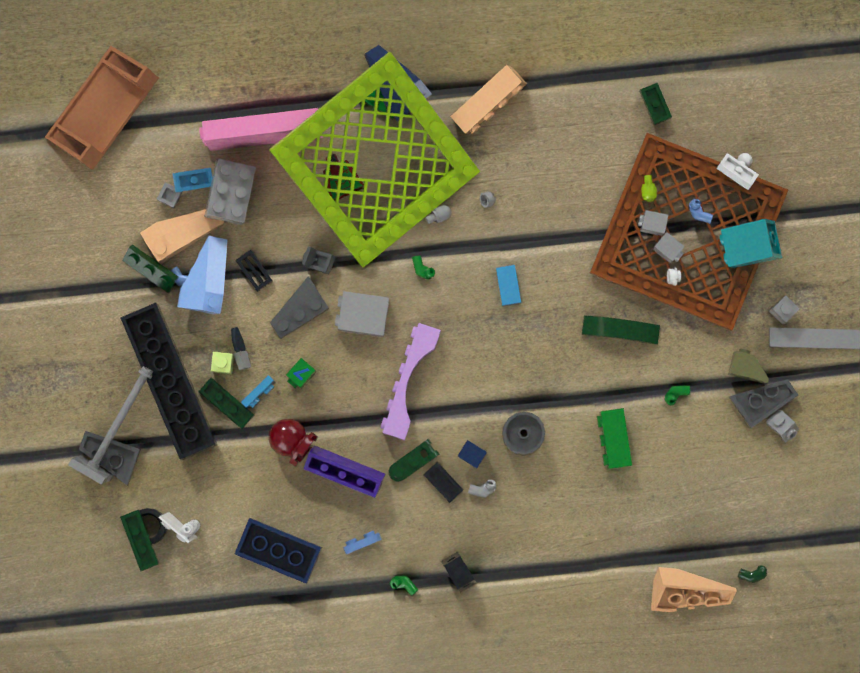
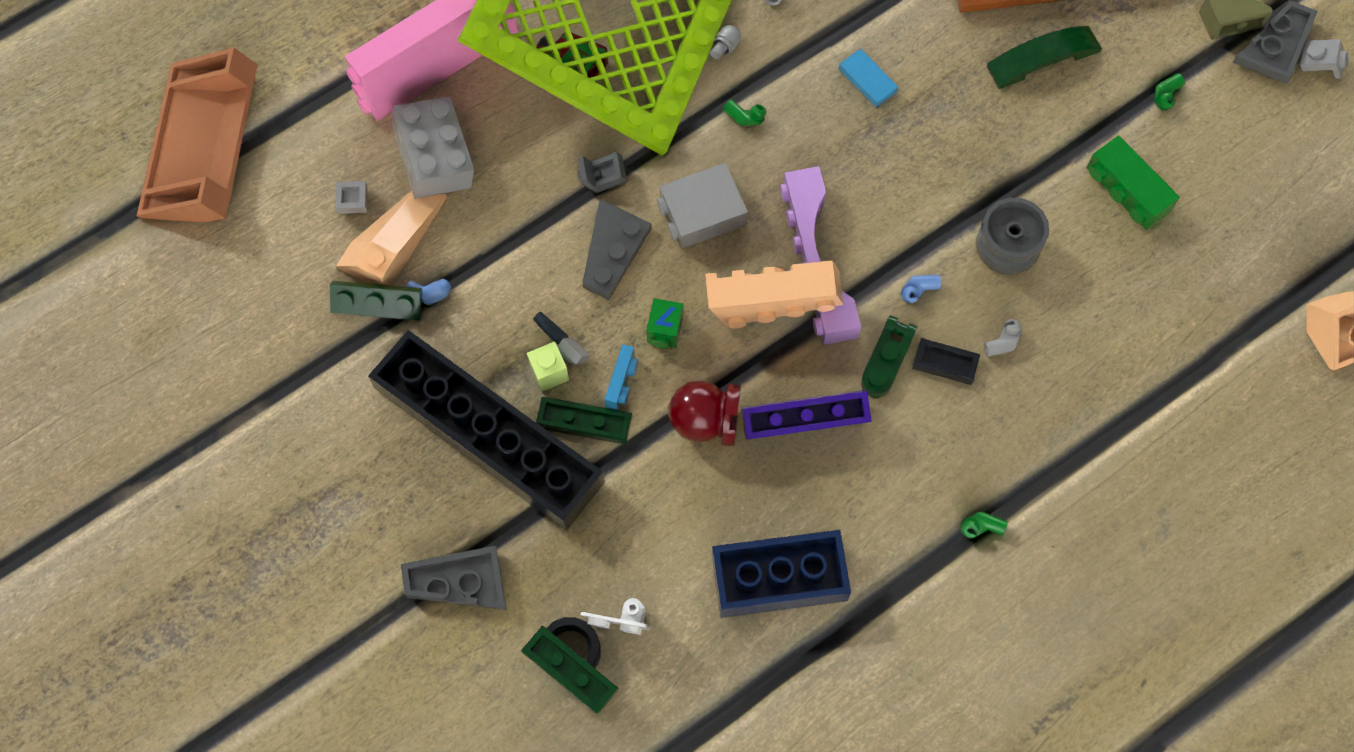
camera: 30 degrees left, 15 degrees down
(92, 467) = (440, 605): light grey tile -> none
(192, 179) = (372, 159): dark azure plate -> none
(205, 283) = (464, 277): light blue wedge -> none
(263, 283) = (543, 243): black tile -> none
(366, 393) = (774, 293): none -> light nougat wedge
(369, 538) = (882, 508): medium blue plate -> none
(455, 429) = (917, 285): none -> medium blue arm
(458, 572) = (1048, 461): black torso -> none
(472, 454) = (963, 298): dark blue panel -> none

